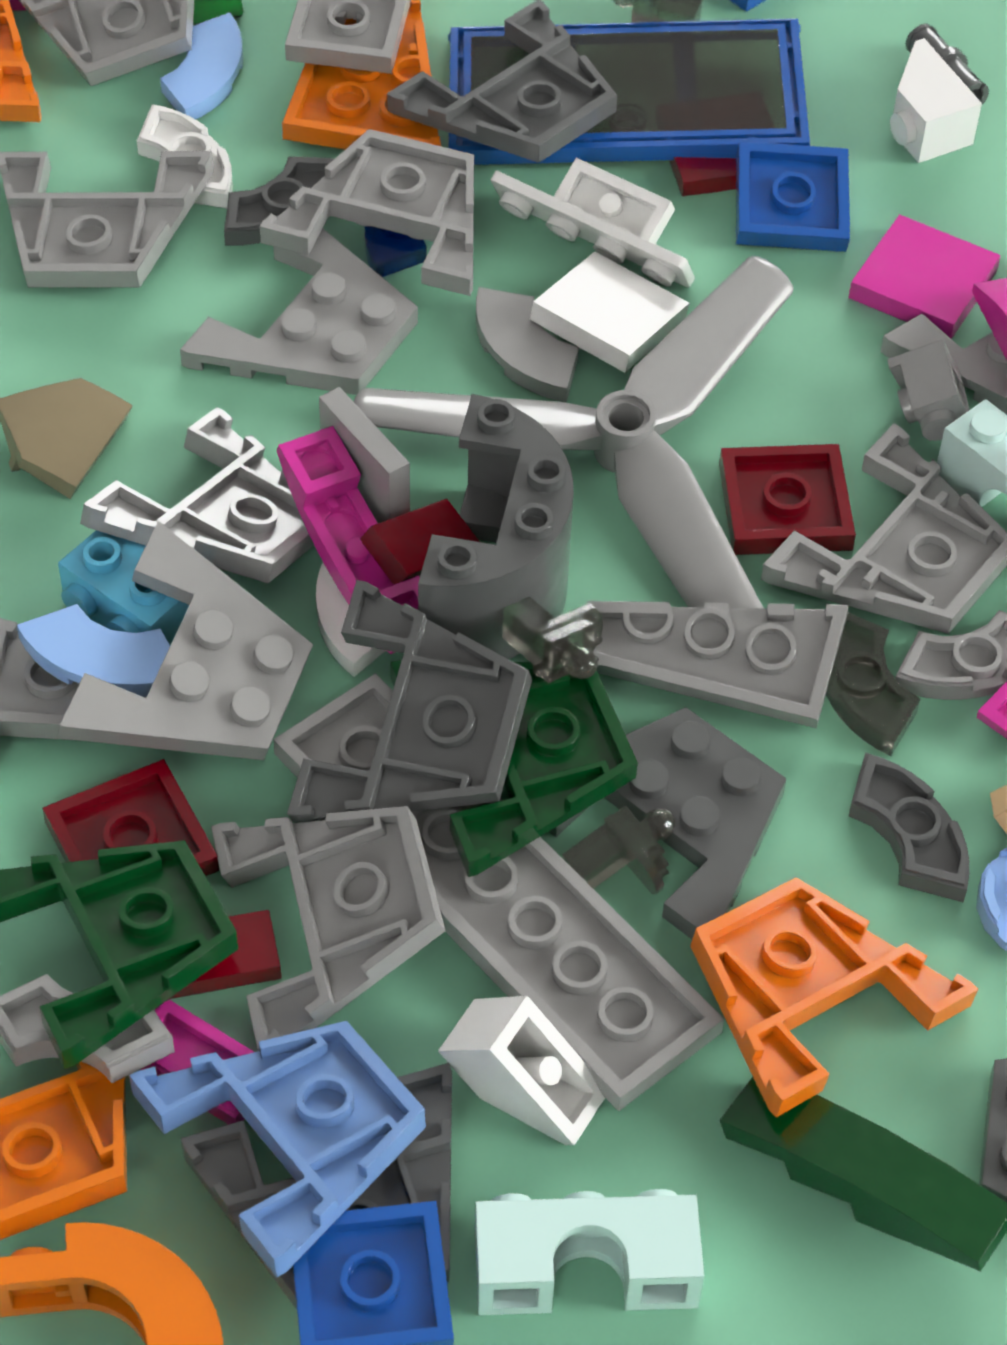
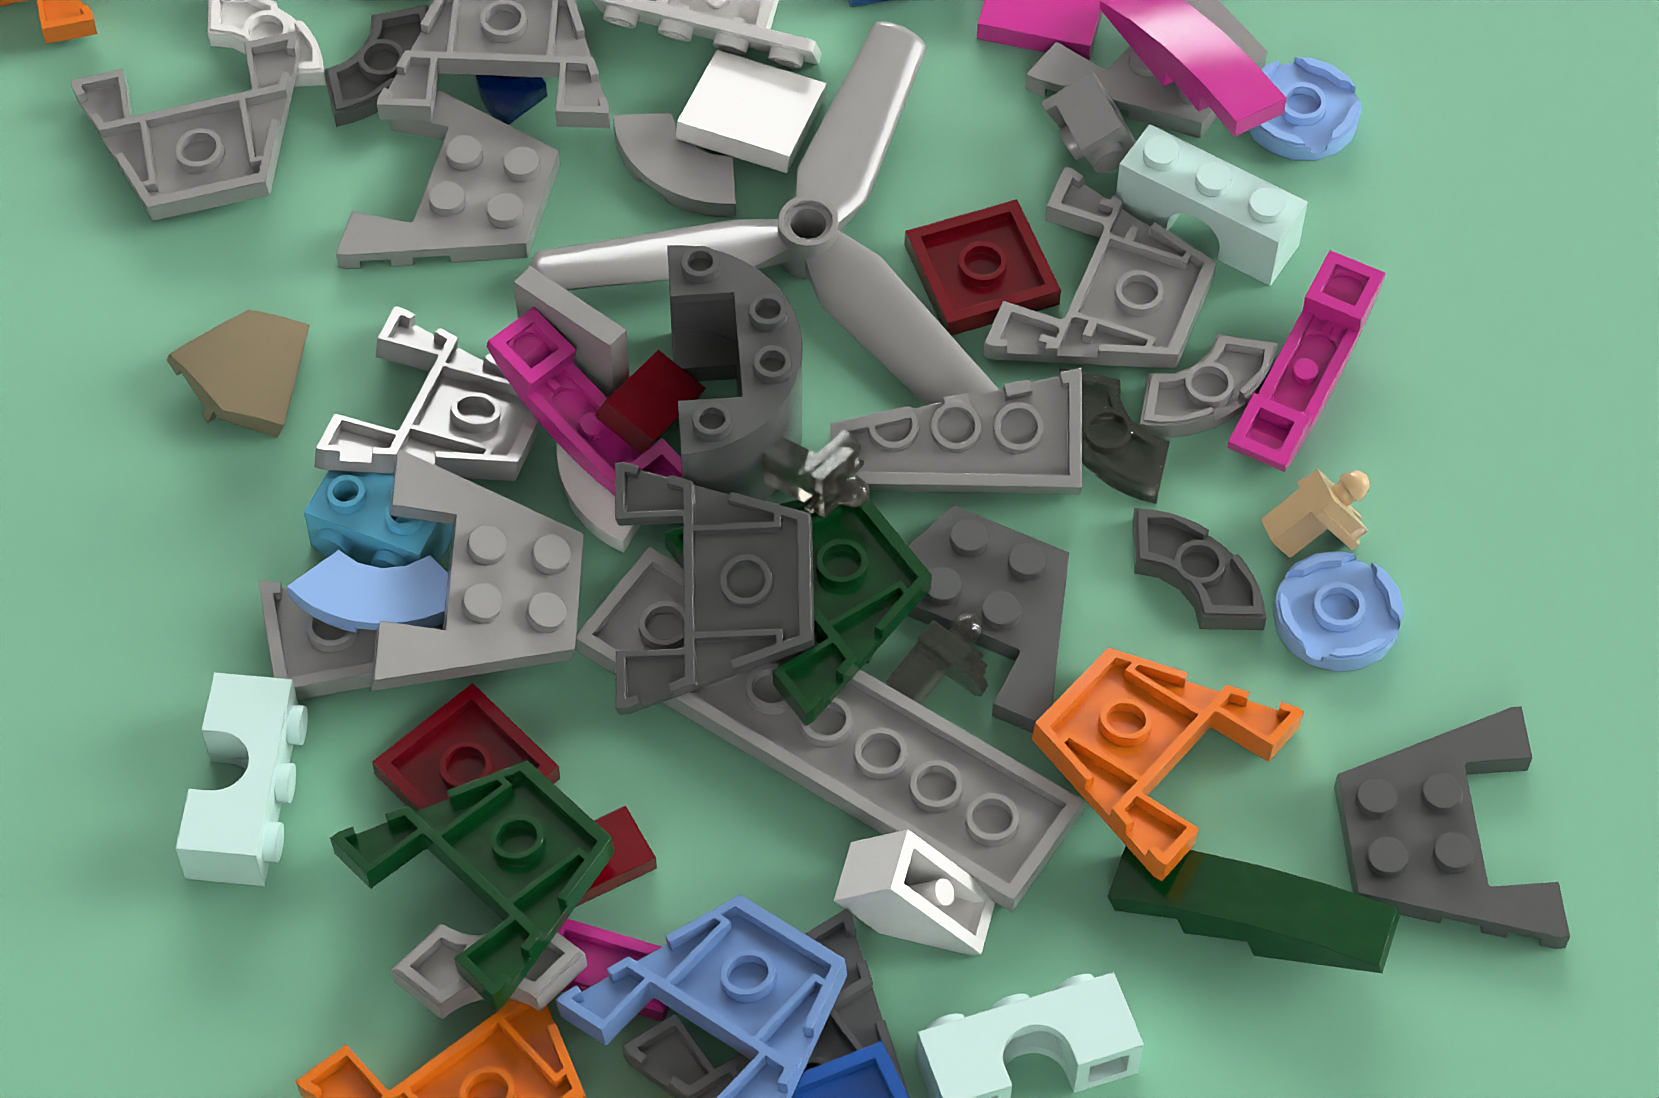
camera: 15 degrees left, 5 degrees up
(359, 899) = (713, 774): light grey wing -> none

